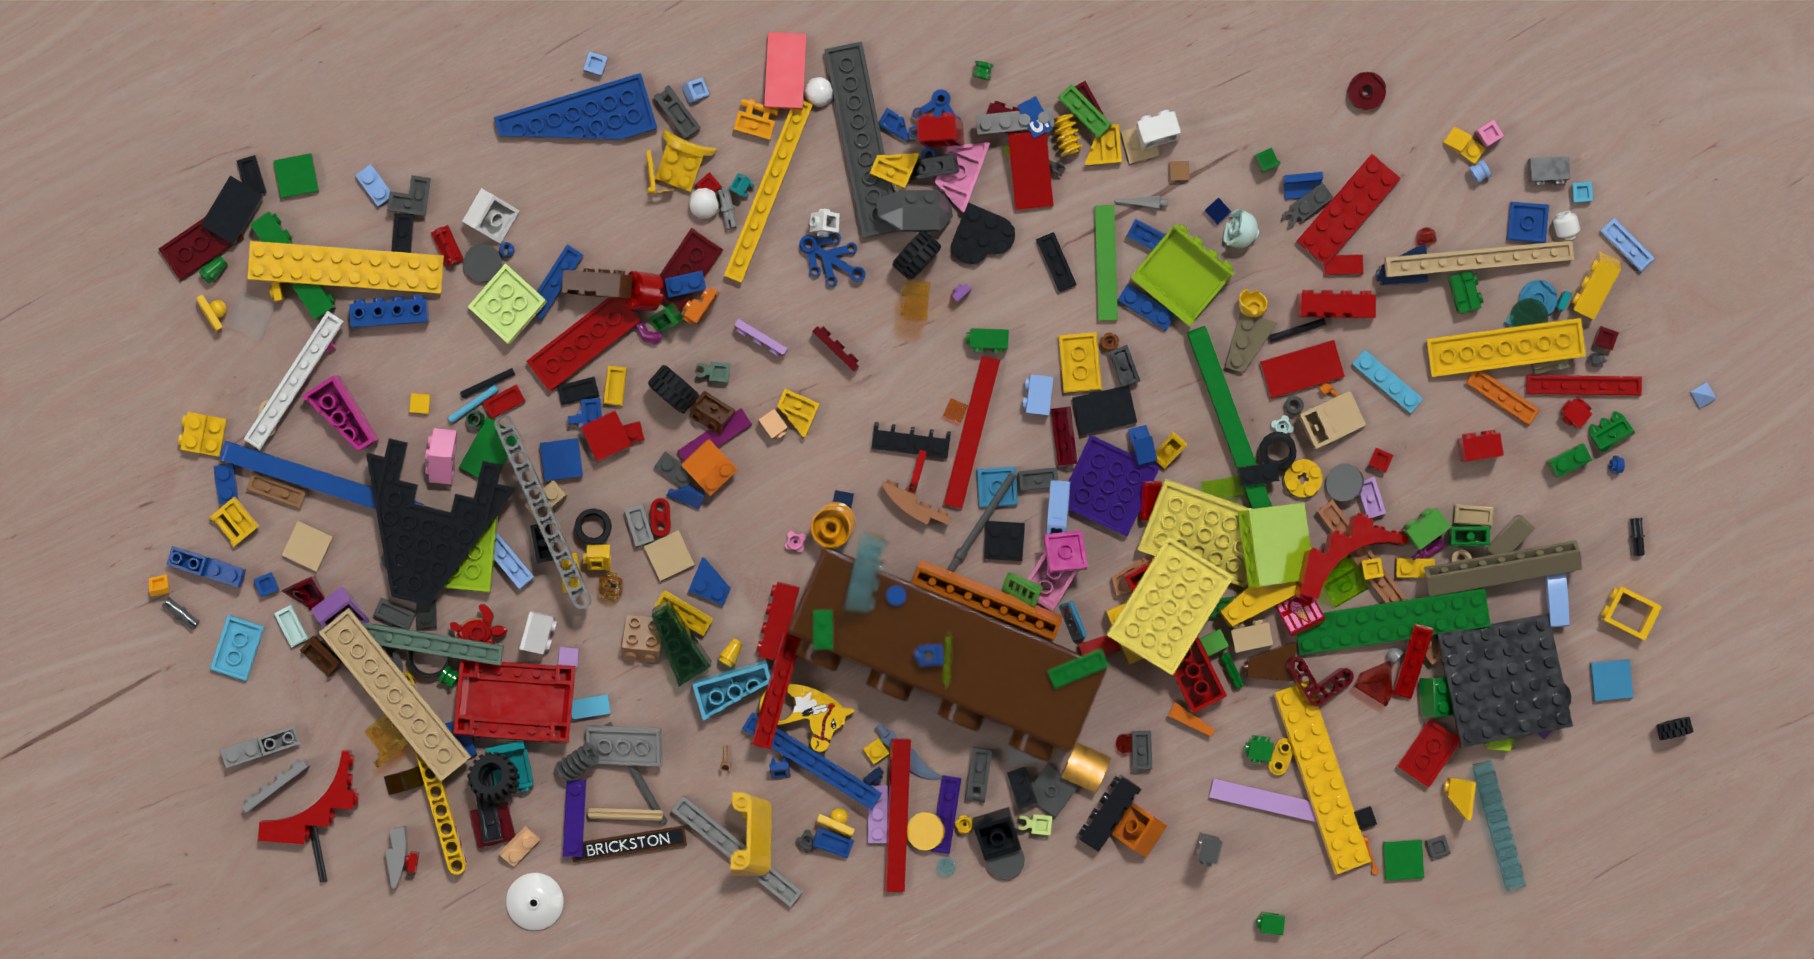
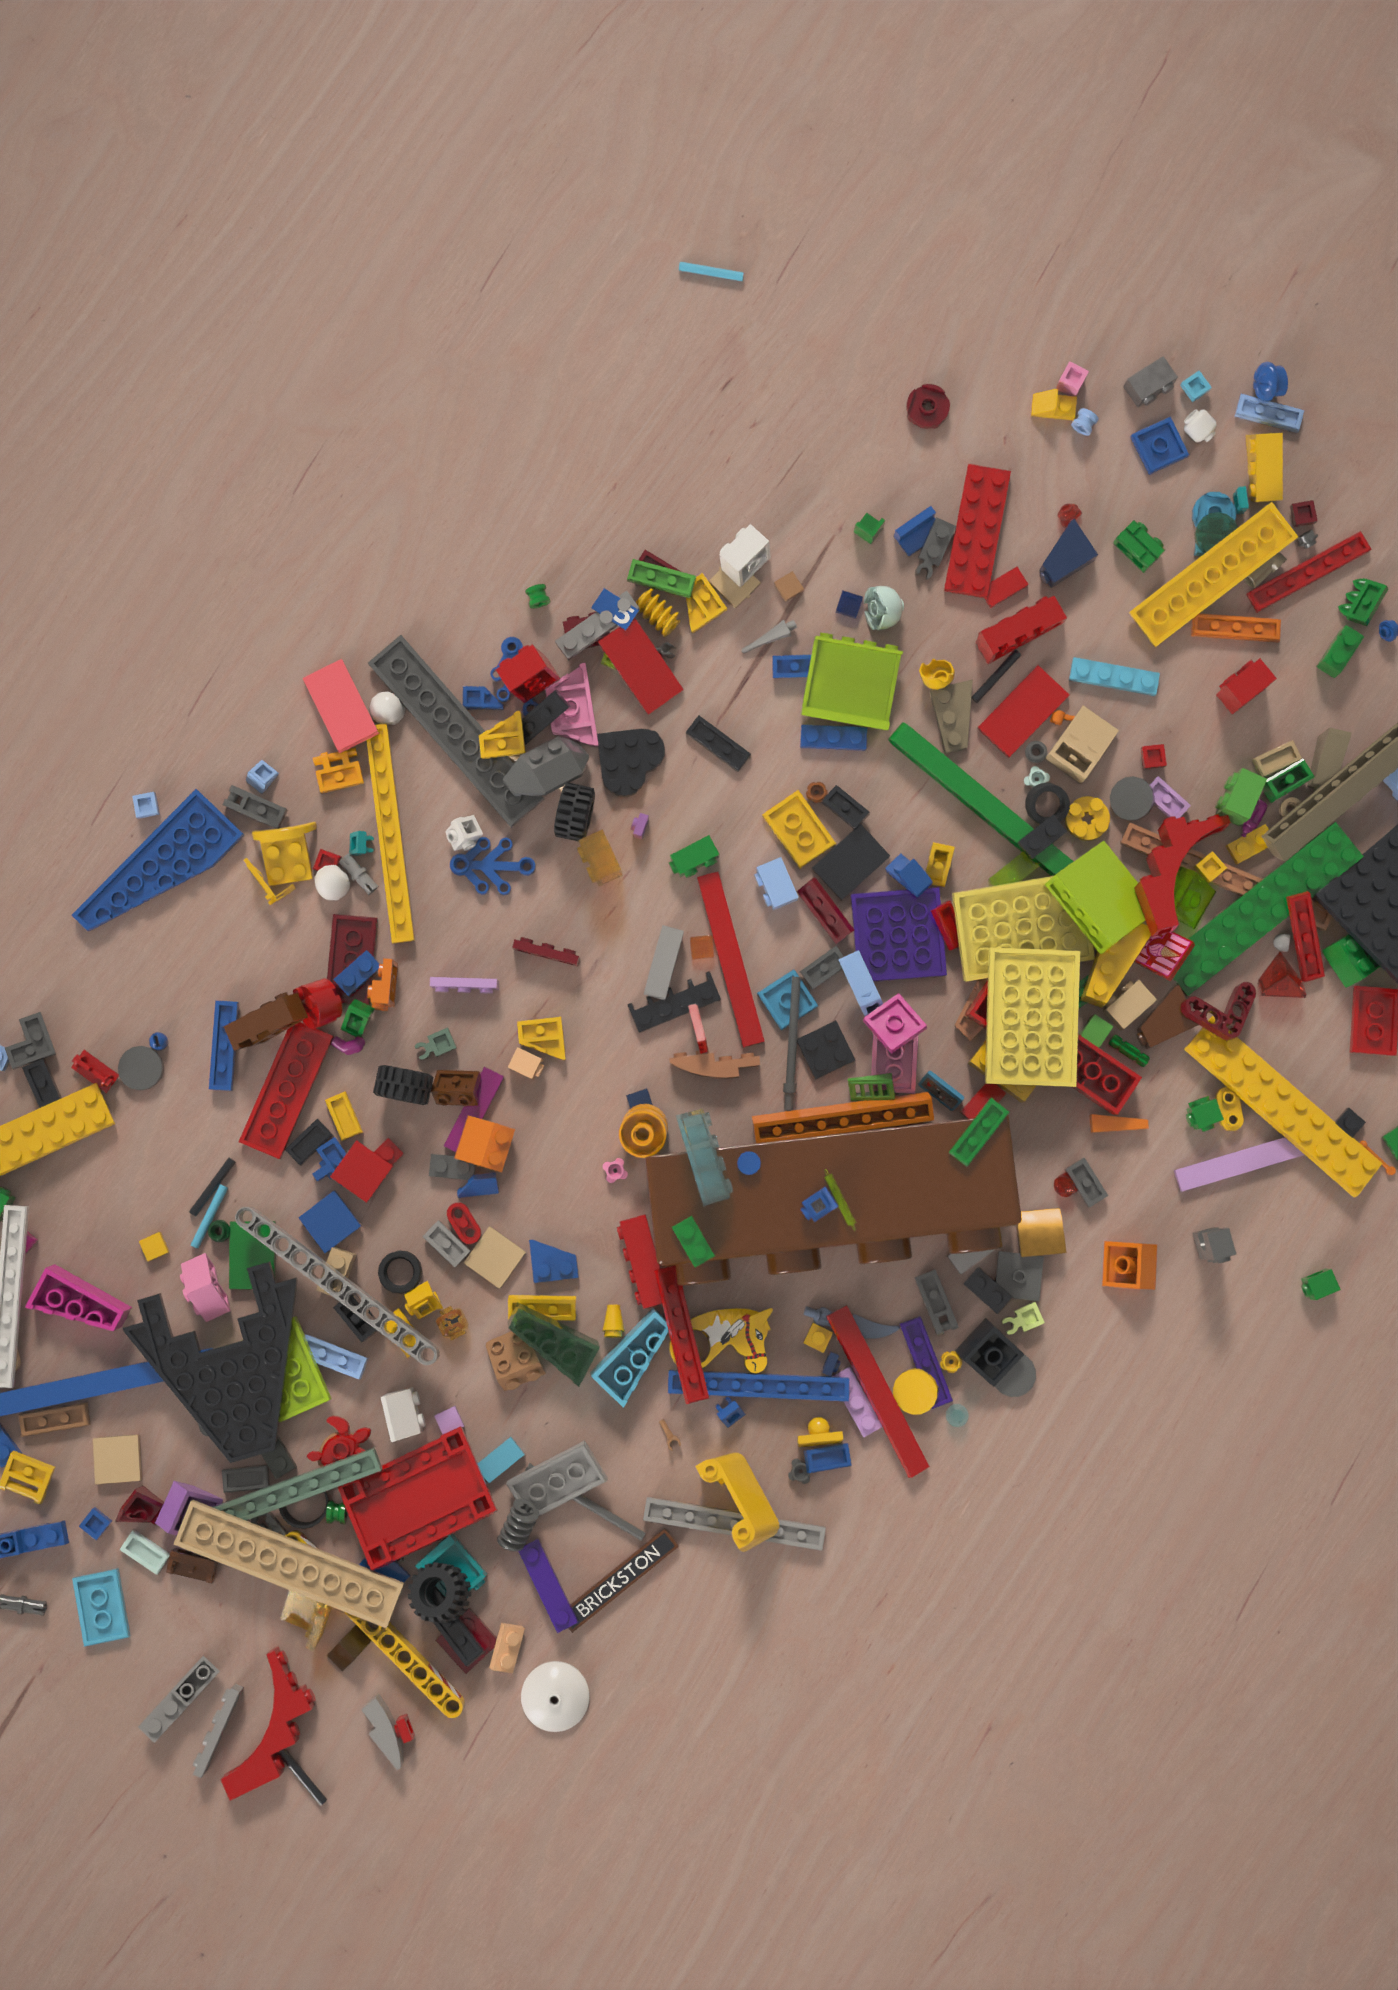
camera: 35 degrees left, 5 degrees down
(389, 312) = (71, 1172): blue brick -> none
(490, 215) = (122, 1015): white slope -> none
(504, 401) = (239, 1195): red tile -> none
(507, 304) = (187, 1094): yellowish green plate -> none
(625, 814) = (598, 1551): tan axle -> none
(920, 406) = (663, 962): none -> light grey slope
(1106, 262) = (768, 716): bright green tile -> none
(1109, 812) = (1090, 1265): black wedge -> none
(1479, 258) = (1134, 504): tan plate -> none
(1576, 412) = (1318, 602): red brick -> none
(1639, 221) = (1270, 381): none -> blue piece

